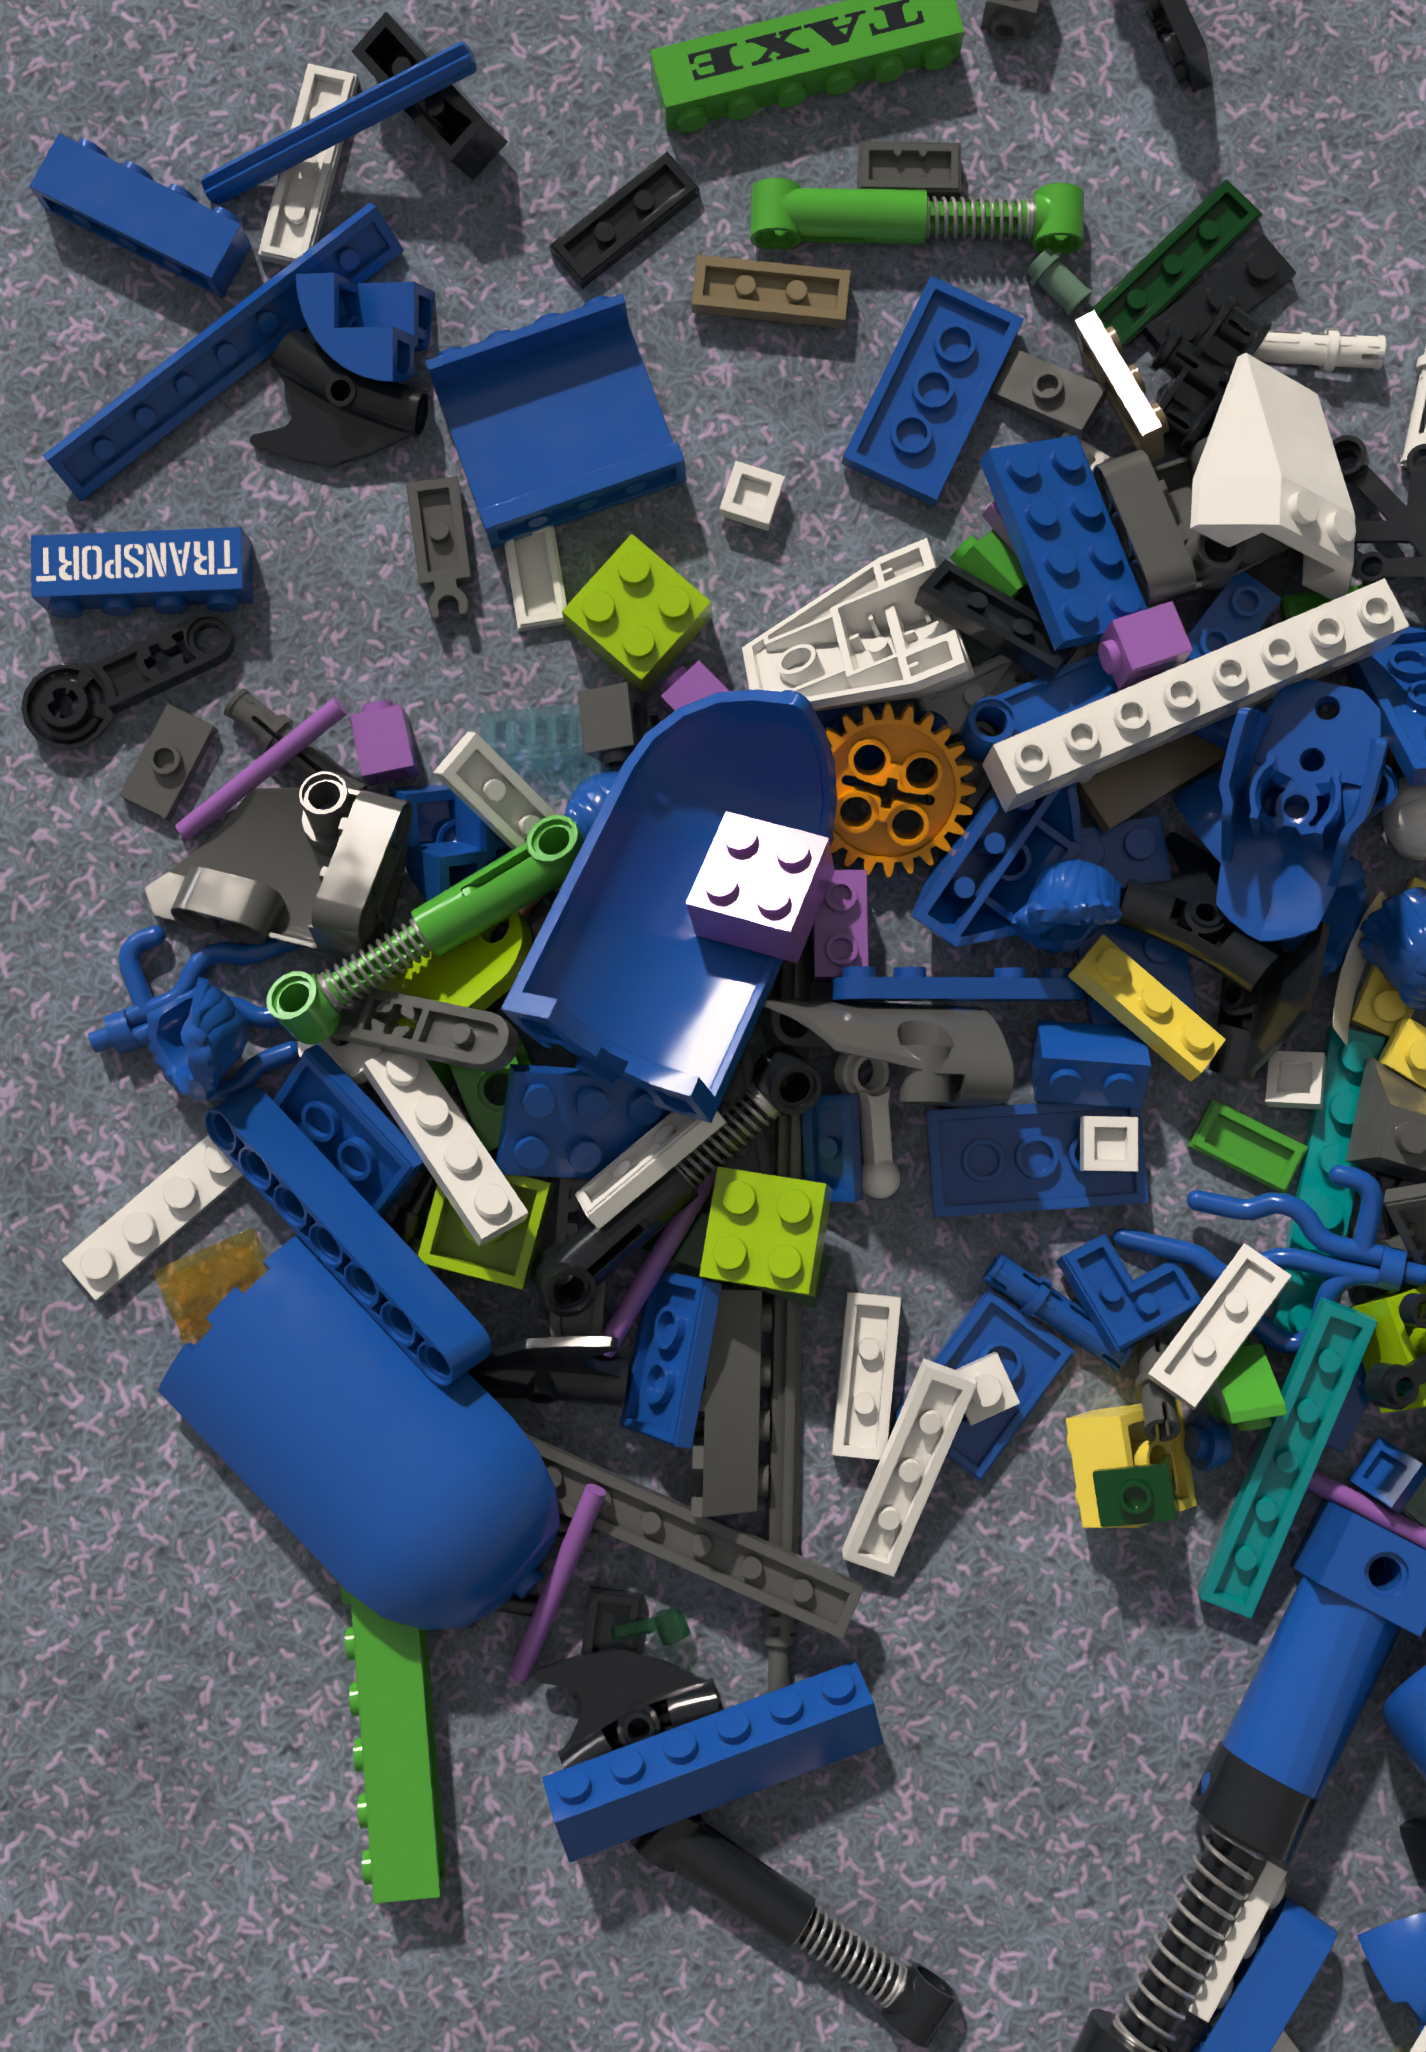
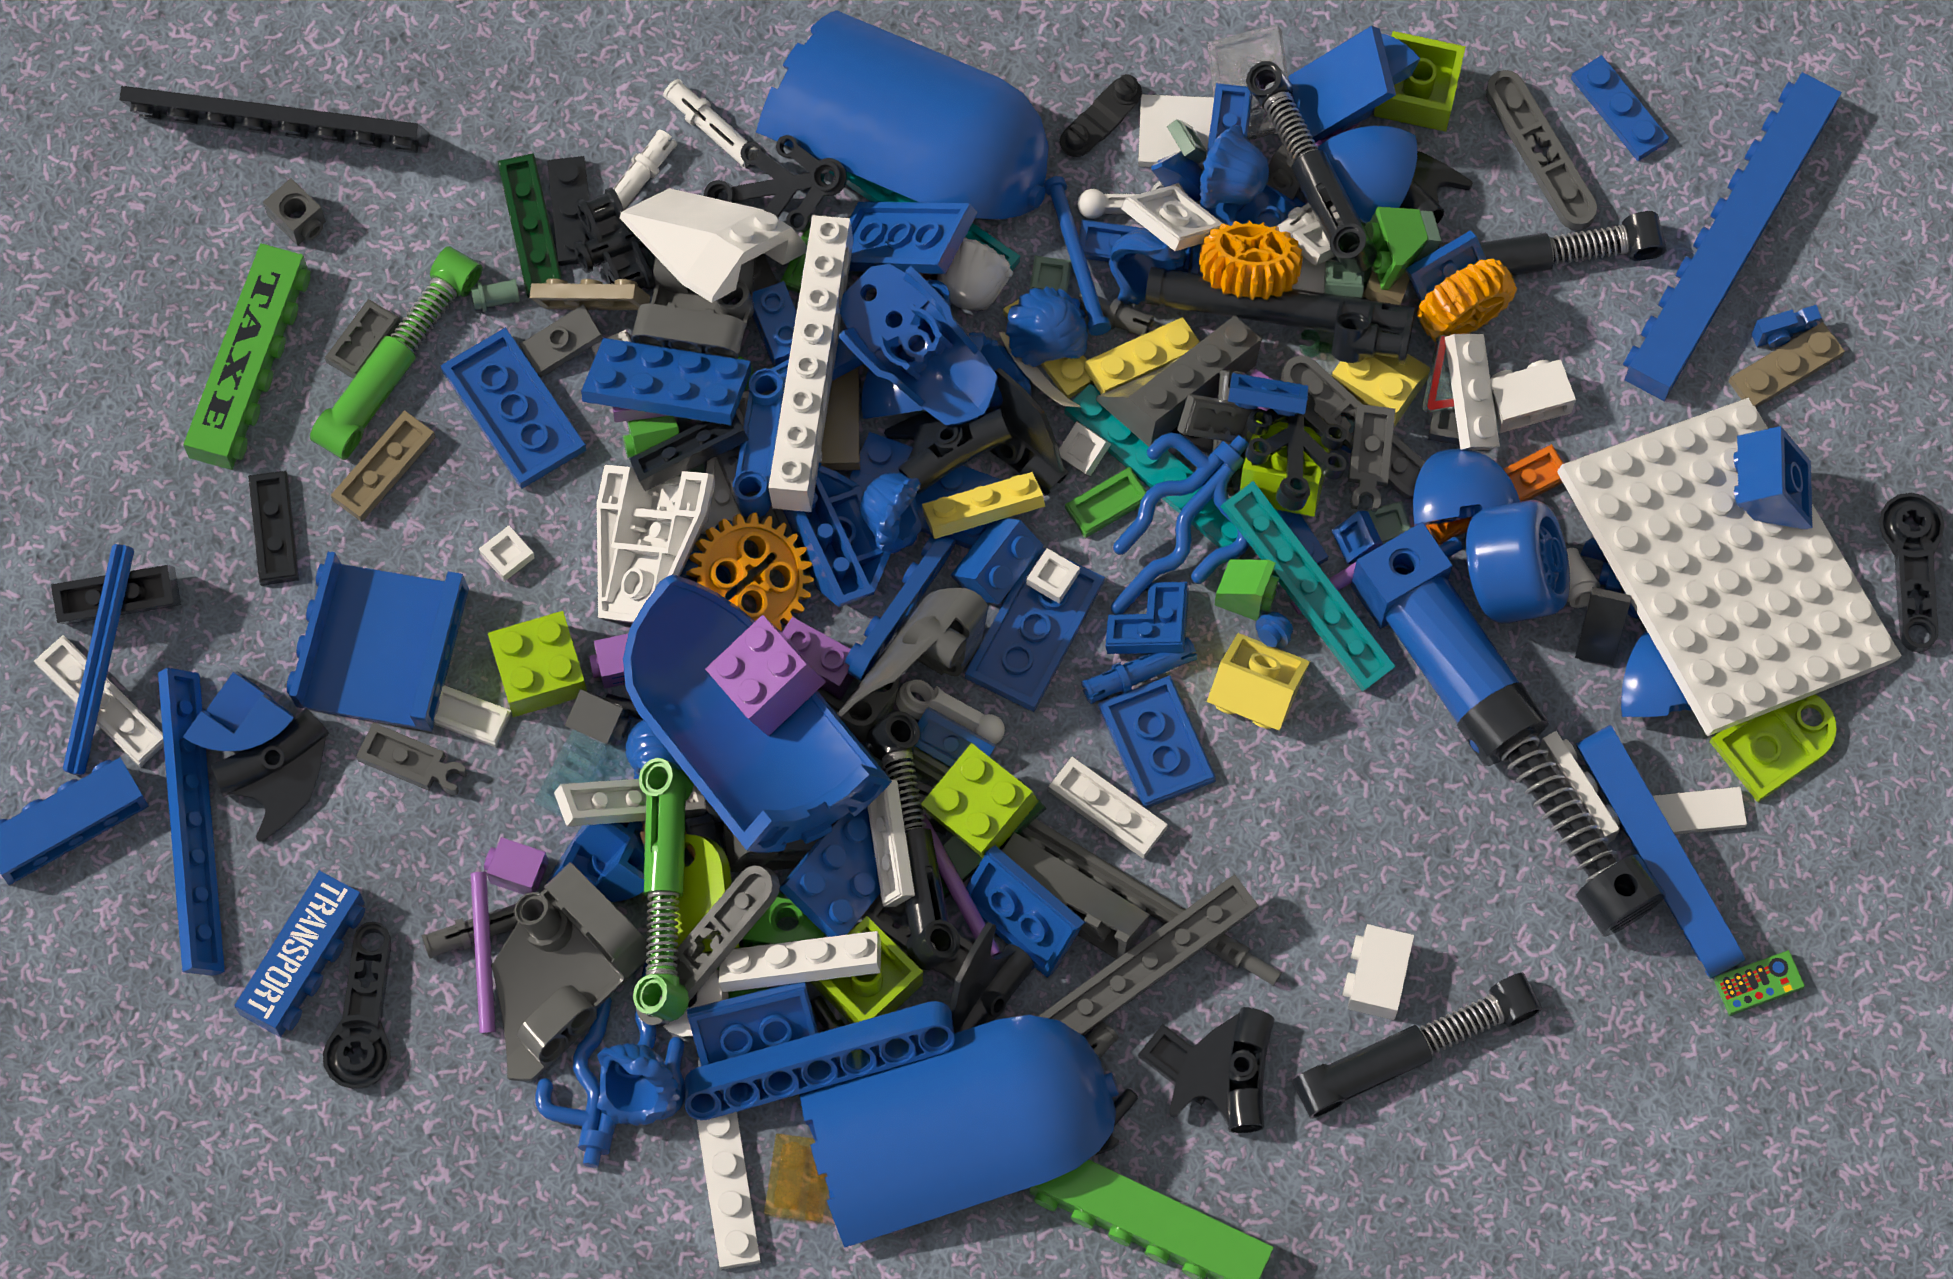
camera: 60 degrees left, 15 degrees down
(168, 762) = (435, 1014): dark grey plate -> none
(557, 1582) = (1121, 1065): medium lavender bar -> none
(668, 1623) = (1191, 1019): clear green hand -> none
(712, 1761) = (1287, 1029): blue brick -> none
(855, 1820) = (1379, 971): none -> white brick
(908, 1467) = (1179, 811): white plate -> none
(993, 1389) = (1158, 740): white plate -> none
(1136, 1494) = (1272, 679): dark green bracket -> none
(1143, 645) = (762, 371): medium lavender brick -> none
(1157, 1404) = (1219, 635): dark grey pin -> none
(1219, 1326) = (1202, 574): white plate -> none

